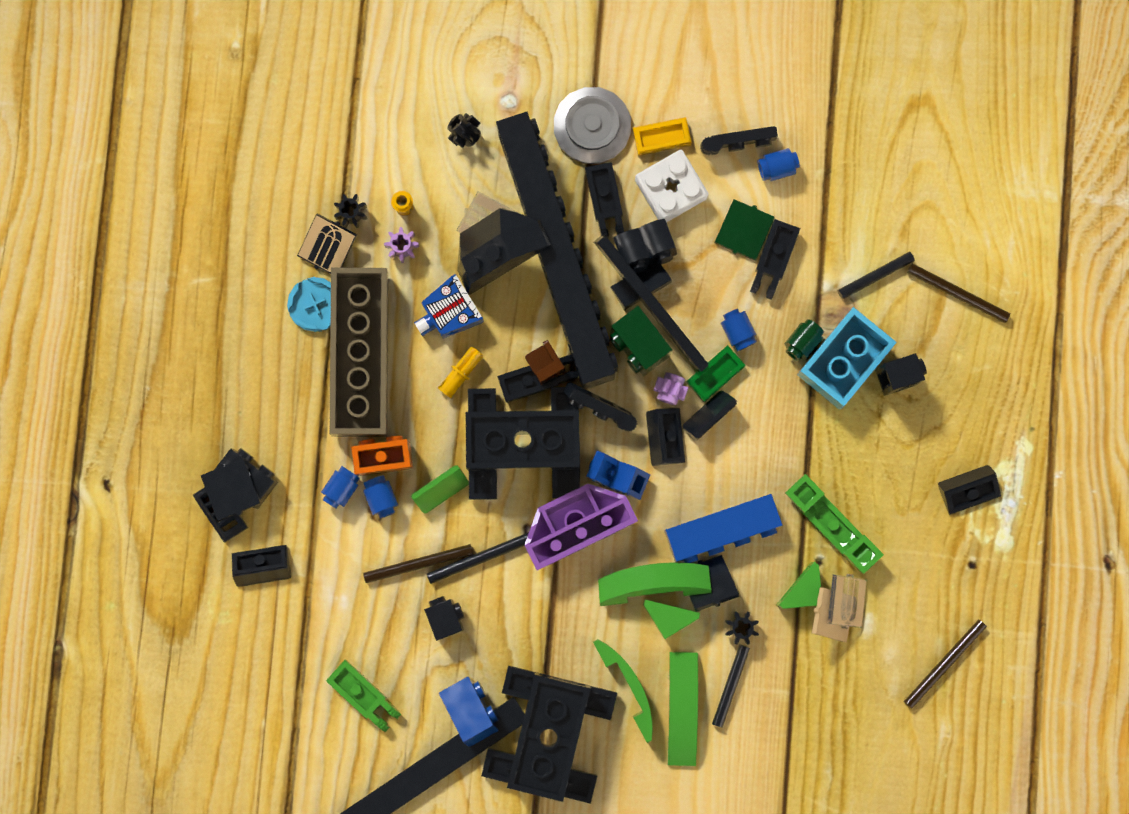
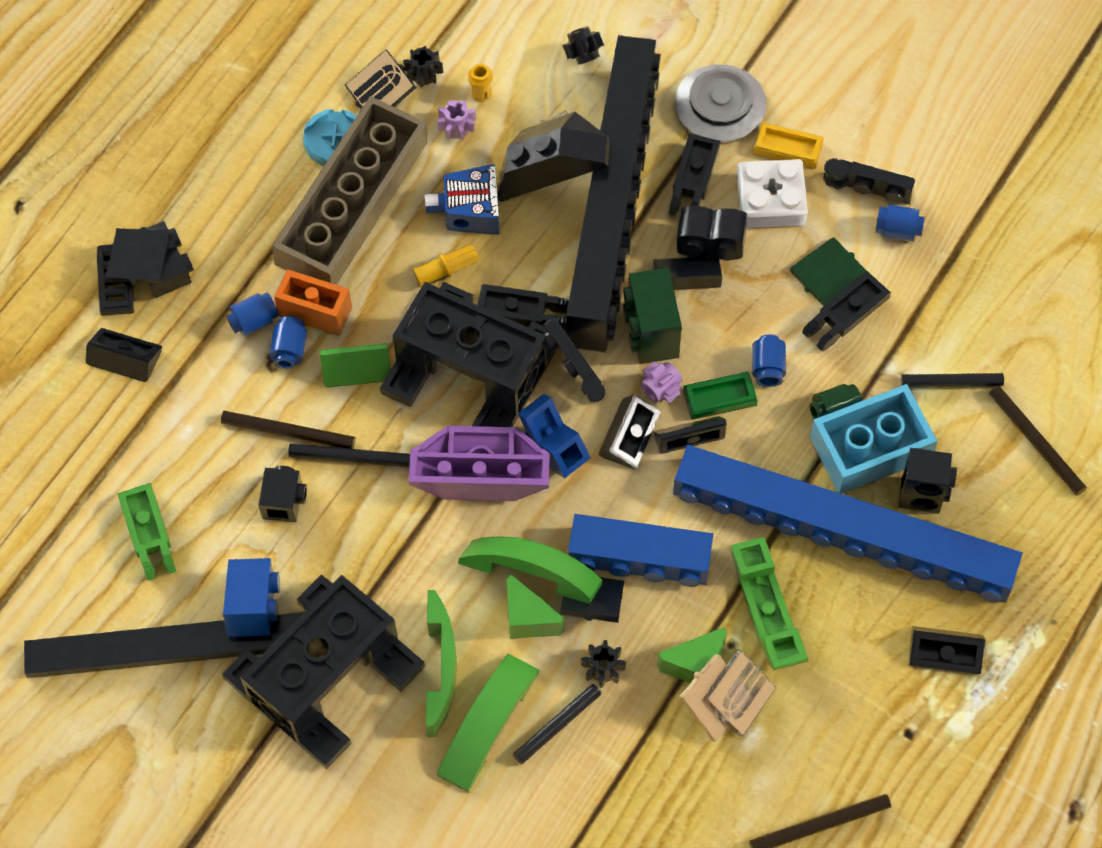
camera: 25 degrees right, 20 degrees down
(544, 363) = (539, 292): reddish brown panel -> none
(651, 303) = (685, 282): black tile -> none
(857, 432) = (847, 523): none -> blue brick

